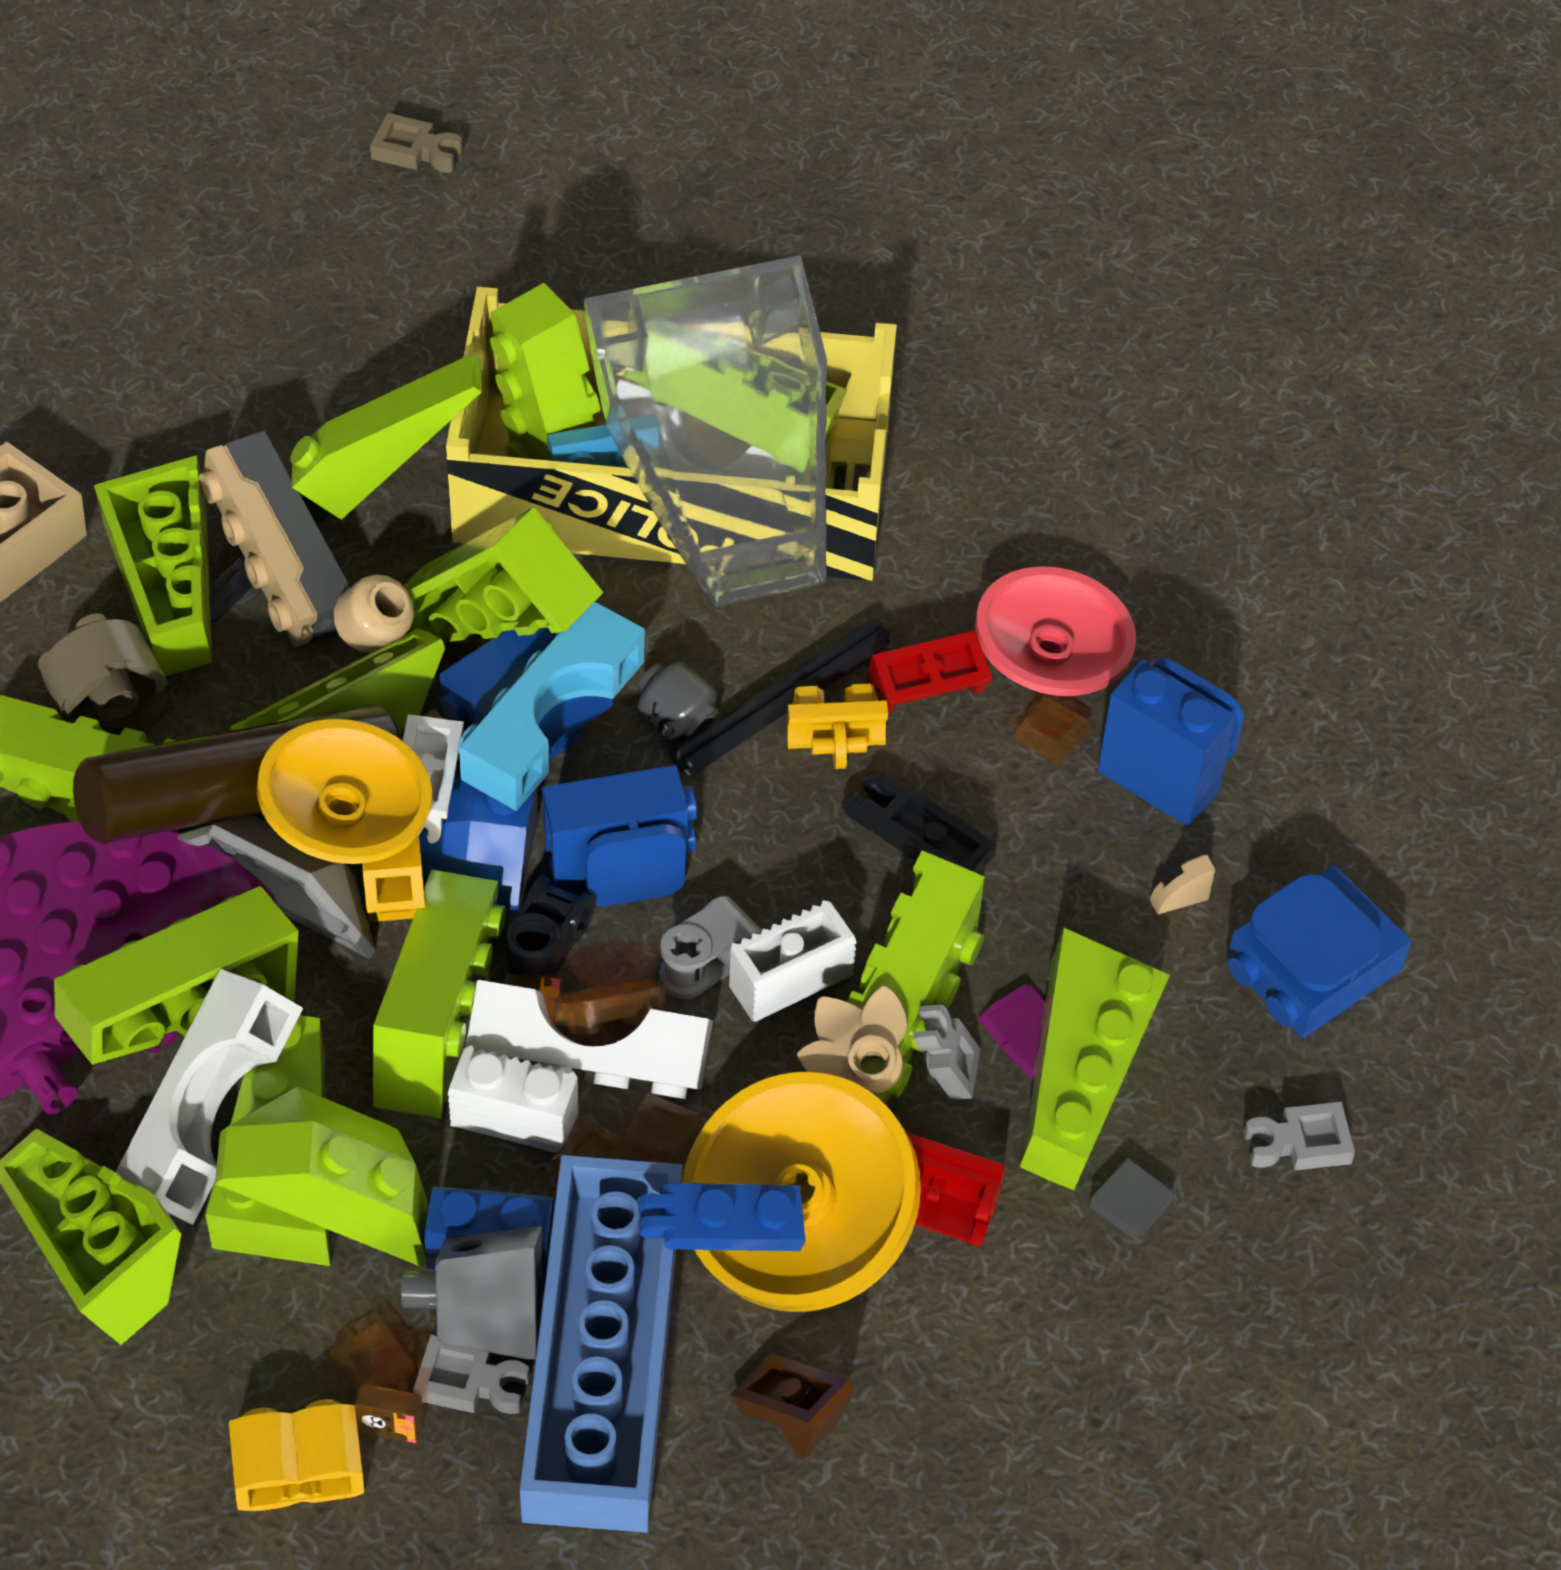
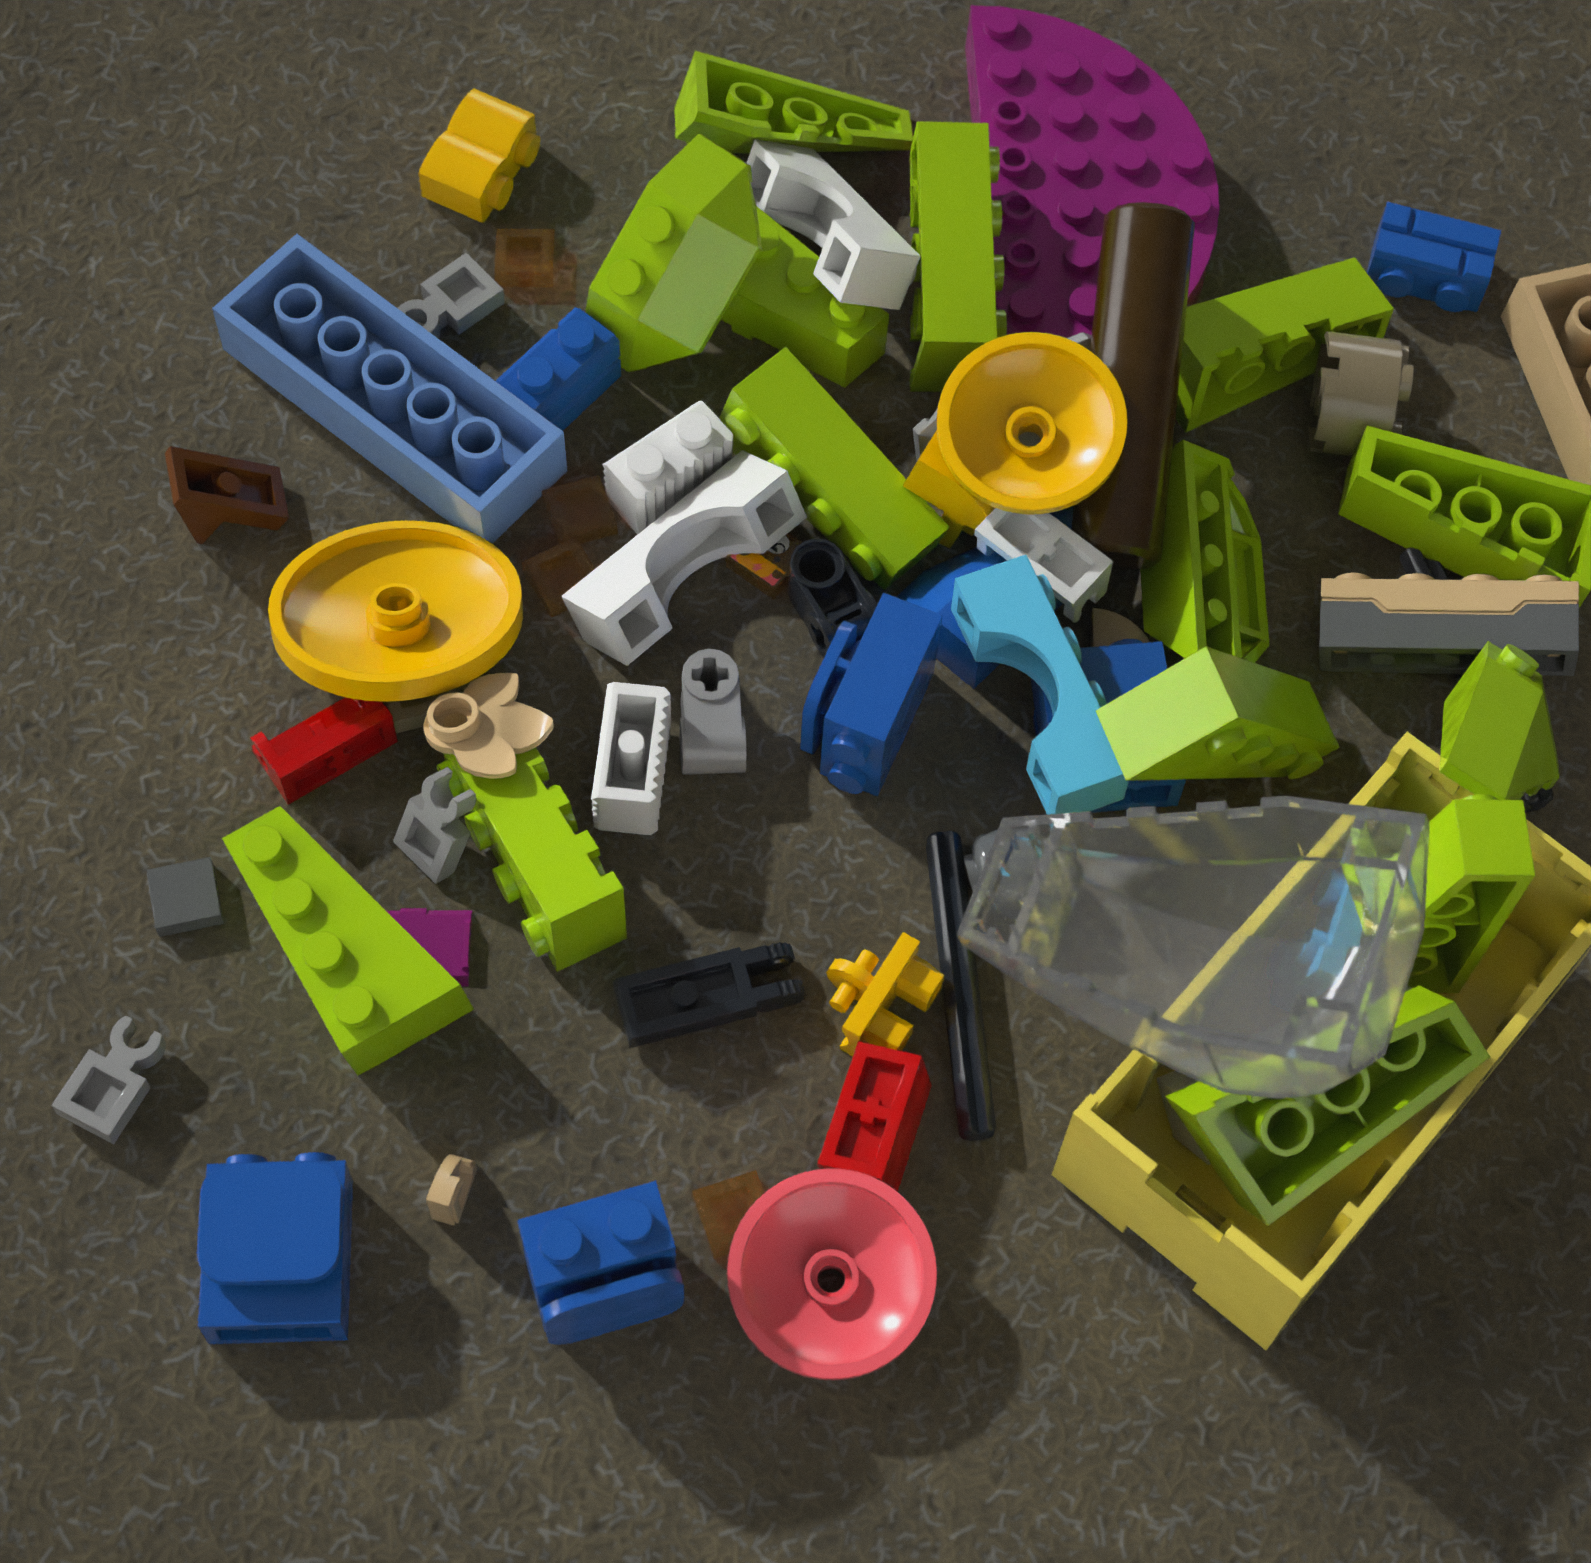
camera: 125 degrees right, 10 degrees up
(373, 613) = (1285, 636): tan head -> none
(389, 1413) = (460, 229): clear orange tile -> none
(484, 1291) = (502, 320): torso -> none
(589, 1008) = (708, 604): clear orange plate -> none
(724, 1217) = (402, 510): blue hinge -> none

